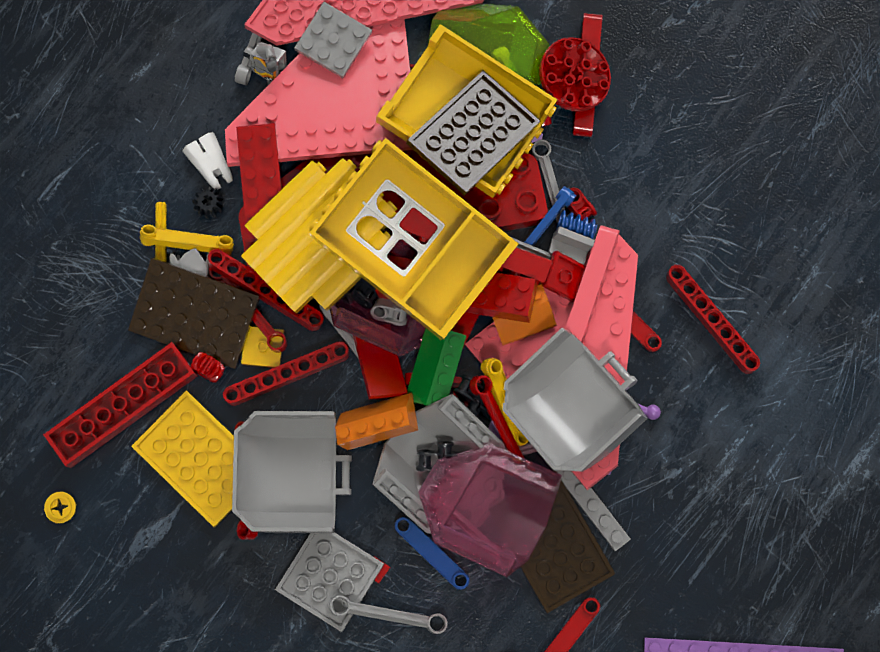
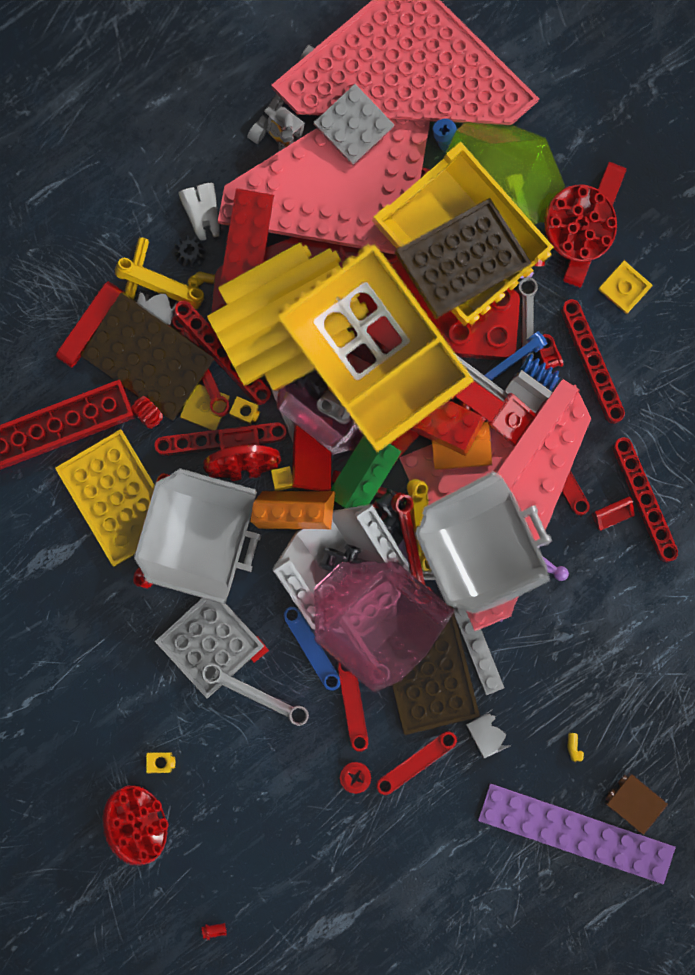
camera: 15 degrees right, 5 degrees up
(127, 299) = (74, 345): none -> red beam
(225, 225) = (199, 278): none -> yellow arm
(296, 334) = (241, 403): none -> yellow brick
(311, 380) = (241, 452): none -> red bracket
(357, 394) = (282, 478): none -> yellow brick
(421, 26) = (443, 132): none -> blue piece
(488, 599) = (353, 707): none -> red piece
(622, 193) = (592, 371): none -> red beam
(627, 592) = (486, 736): none -> light grey piece
(633, 124) = (625, 287): none -> yellow plate
(686, 340) = (613, 513): none -> red tile
(713, 576) = (572, 748): none -> yellow arm
(792, 616) = (635, 803): none -> reddish brown panel

